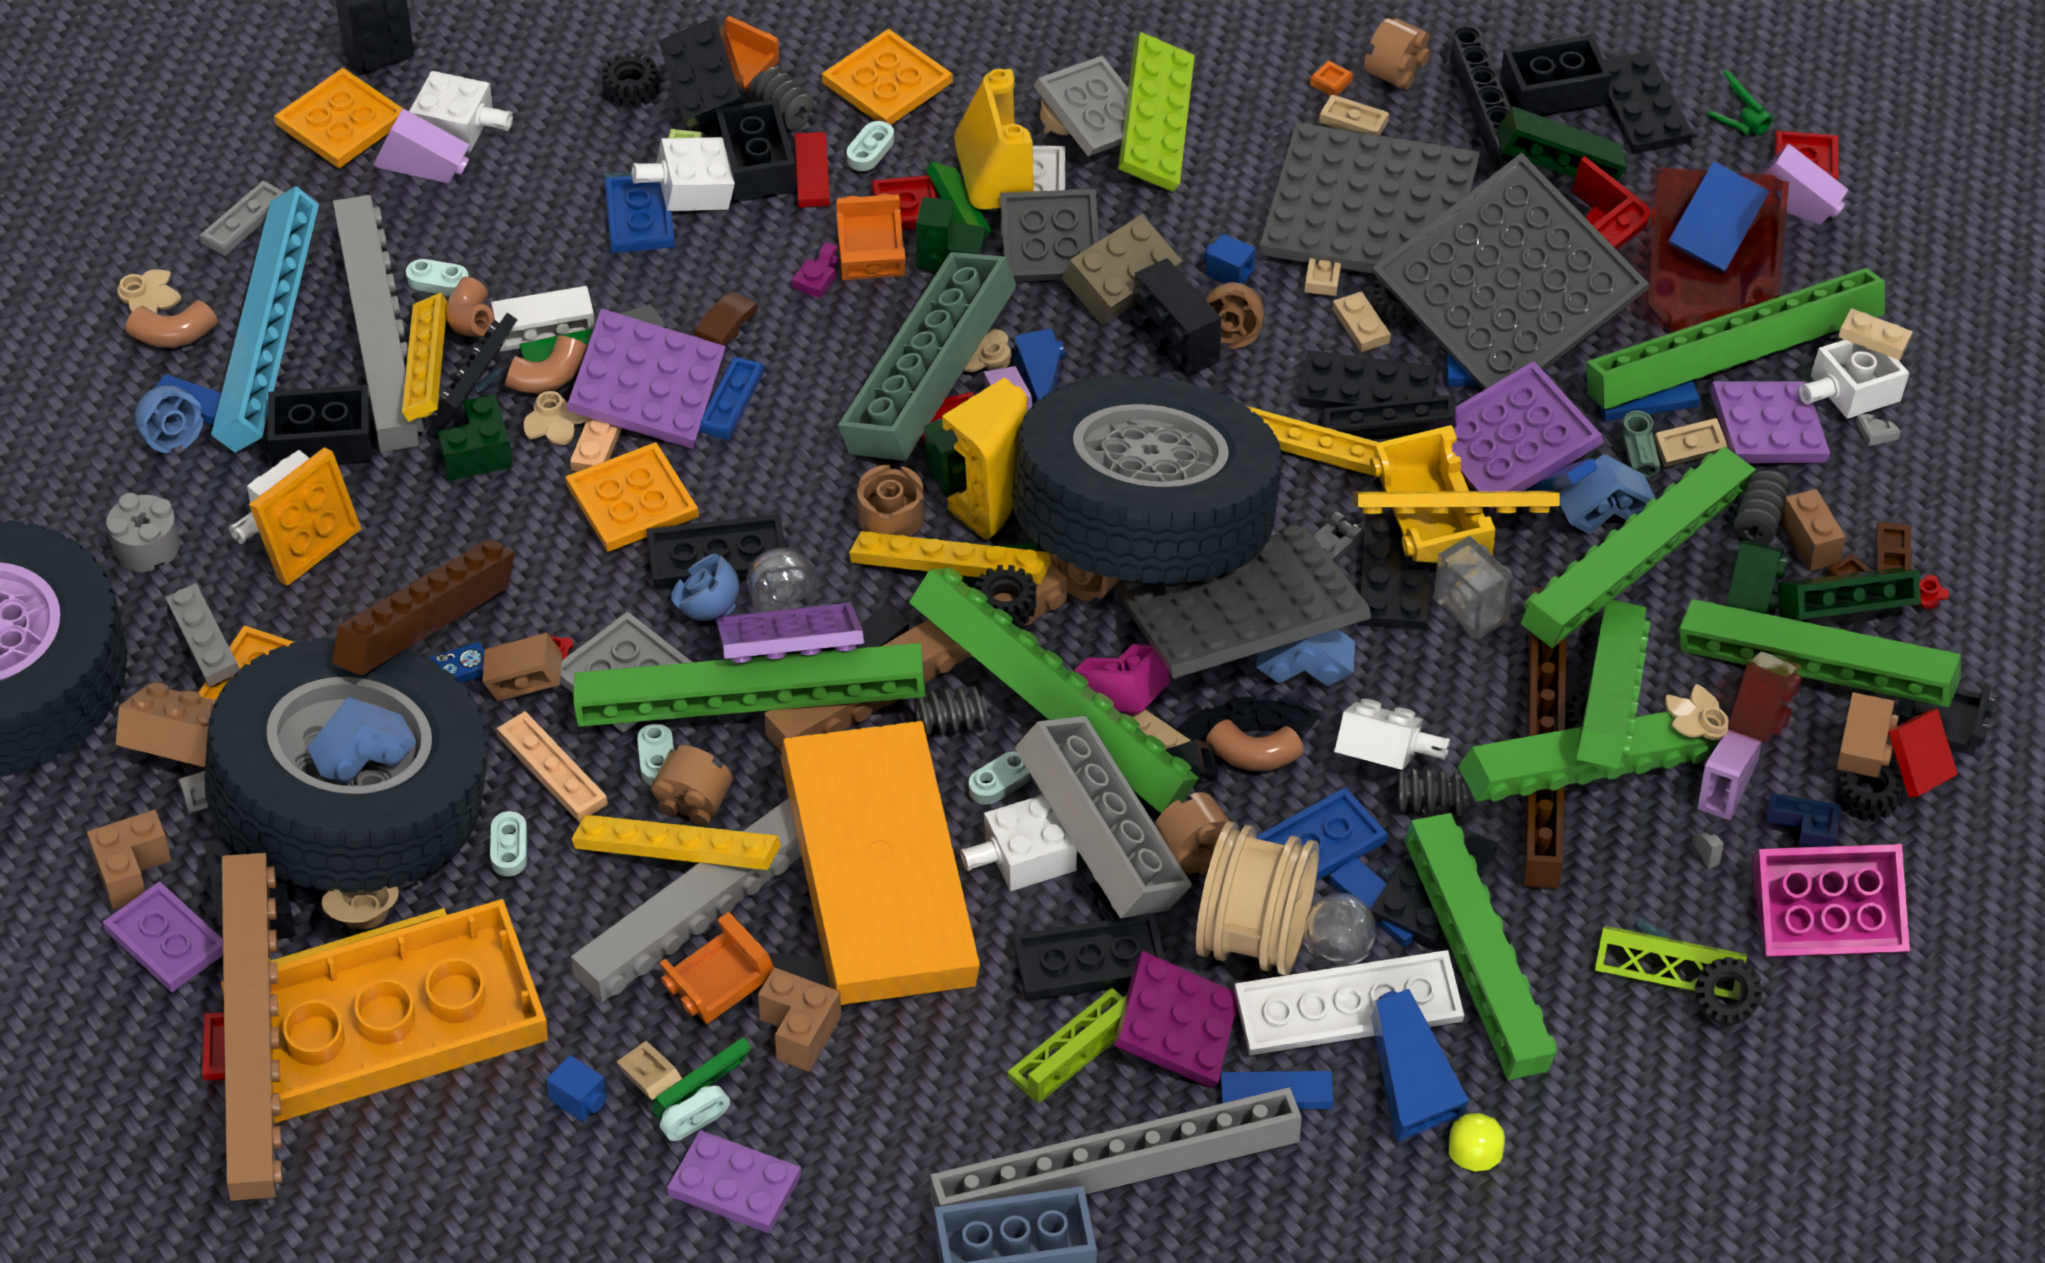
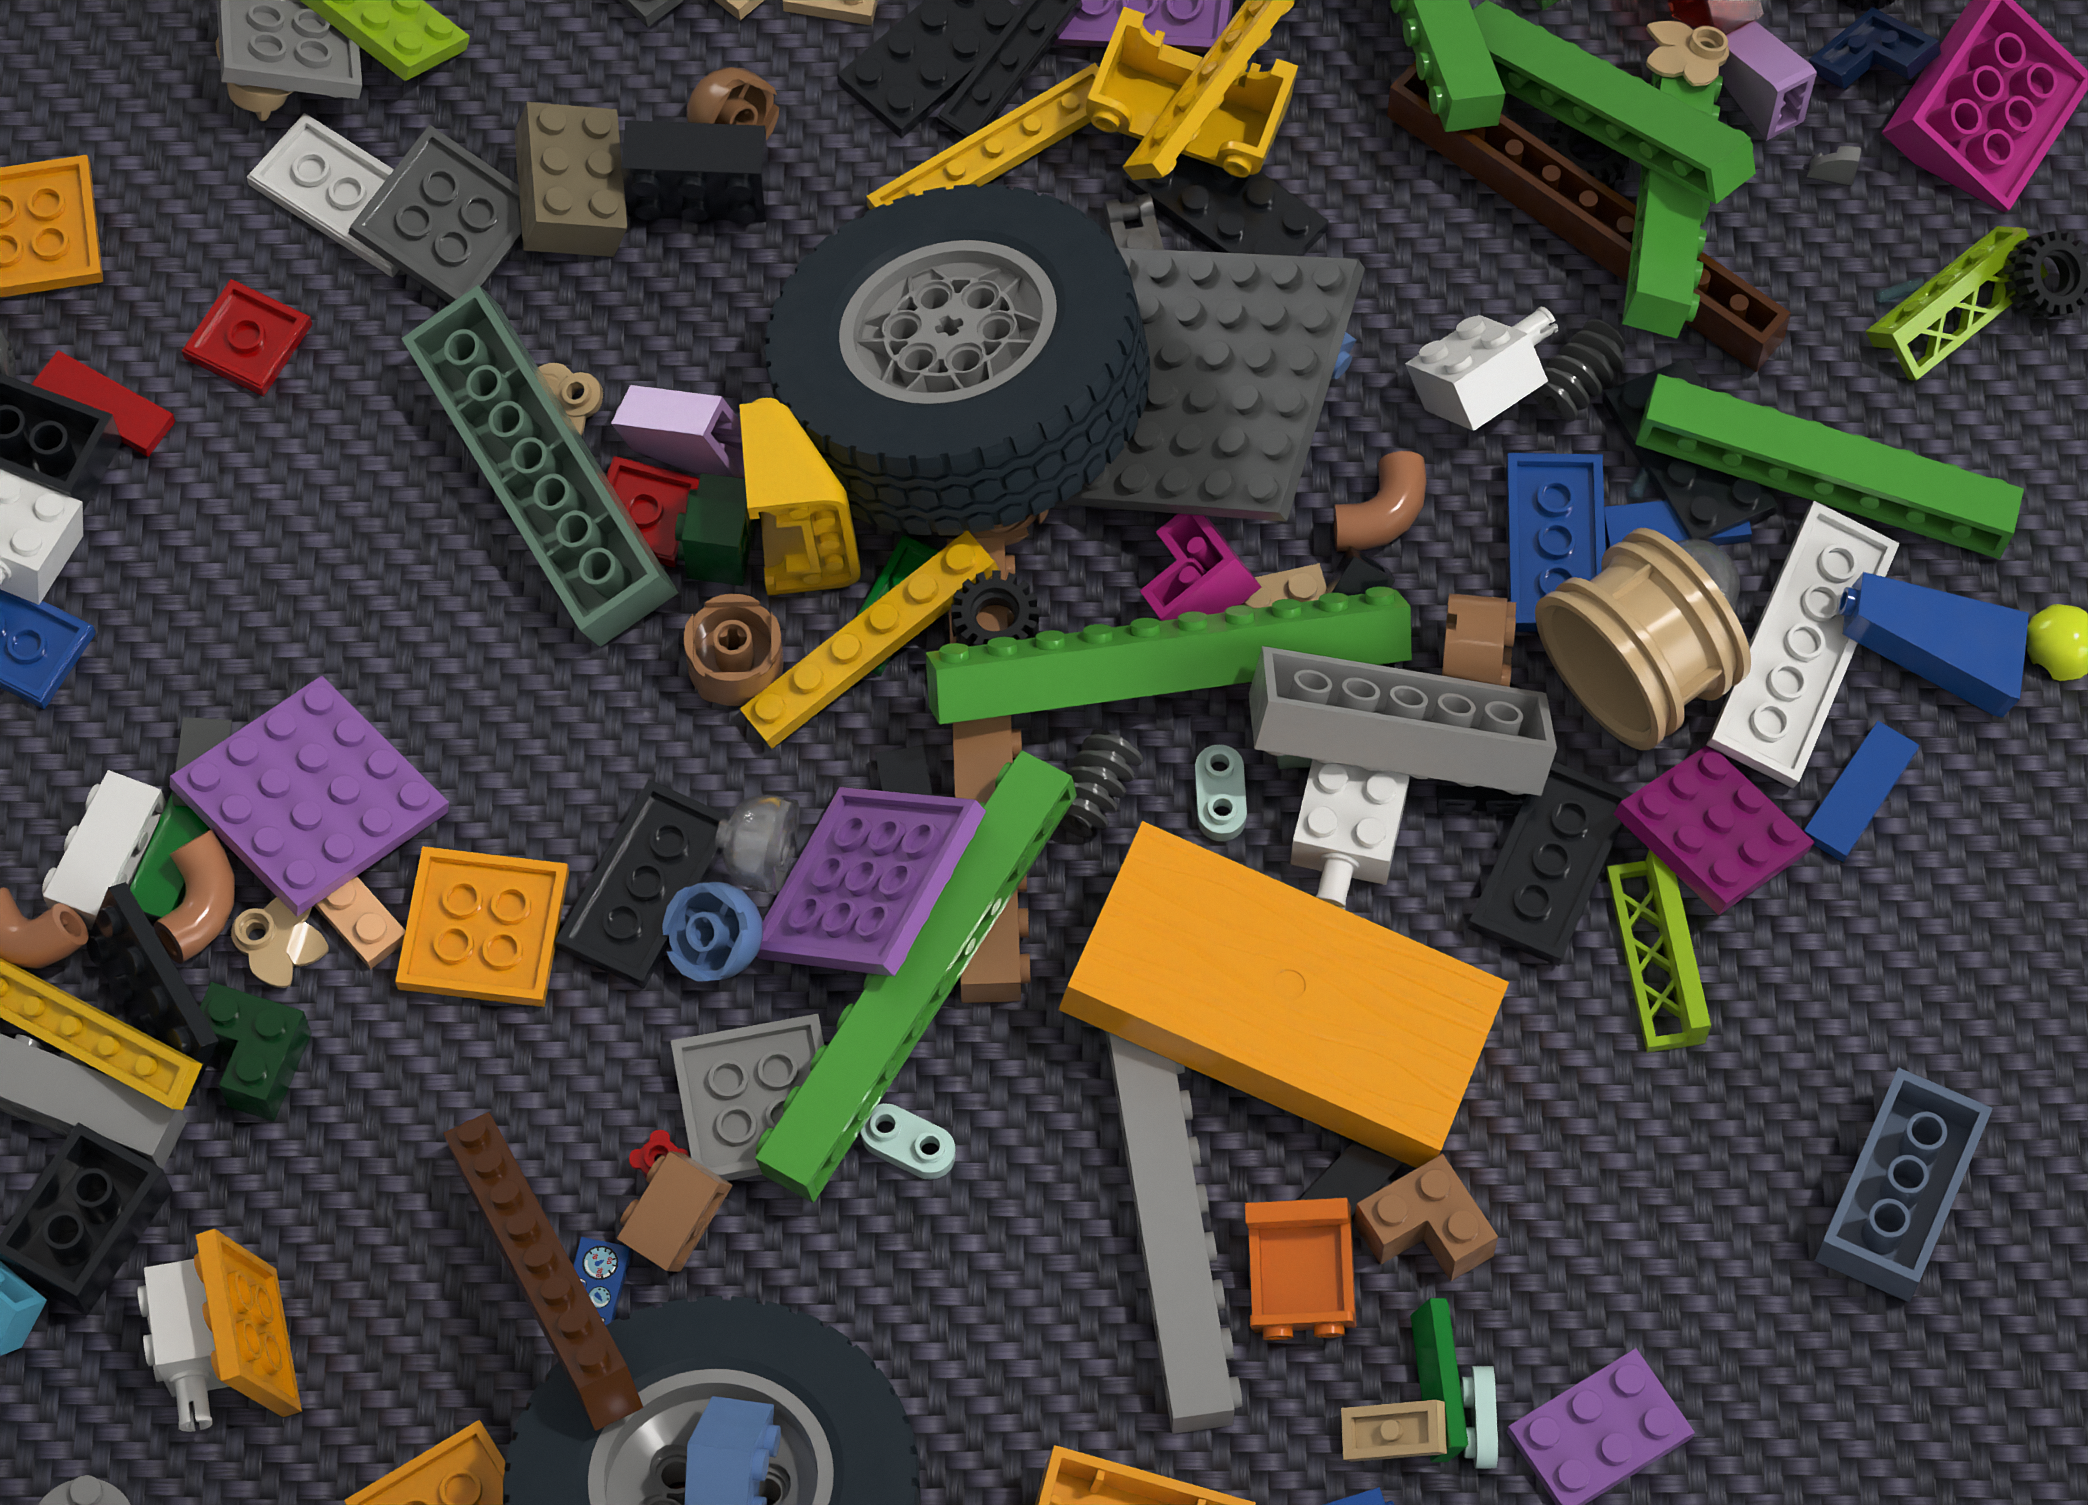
camera: 55 degrees left, 15 degrees up
(506, 846) = (930, 1389): light aqua plate -> none
(552, 766) = (843, 1269): light nougat plate -> none
(676, 842) = (1082, 1199): yellow plate -> none
(691, 784) = (1006, 1130): medium nougat brick -> none
(724, 318) = (276, 648): reddish brown slope -> none
(731, 398) = (404, 718): blue tile -> none
(818, 275) = (283, 505): magenta plate -> none
(870, 146) = (126, 319): light aqua plate -> none
(870, 237) = (283, 410): orange panel -> none
(940, 235) = (364, 332): dark green brick -> none
(952, 187) = (297, 278): green tile -> none
(992, 148) = (263, 197): yellow windscreen -> none
(1039, 361) = (634, 353): blue slope -> none
(1130, 1152) = (1860, 1015): light grey brick -> none
(1229, 260) = (637, 63): blue brick -> none
(1252, 715) = (1324, 475): black tile -> none
(1473, 587) = (1334, 142): clear brick -> none

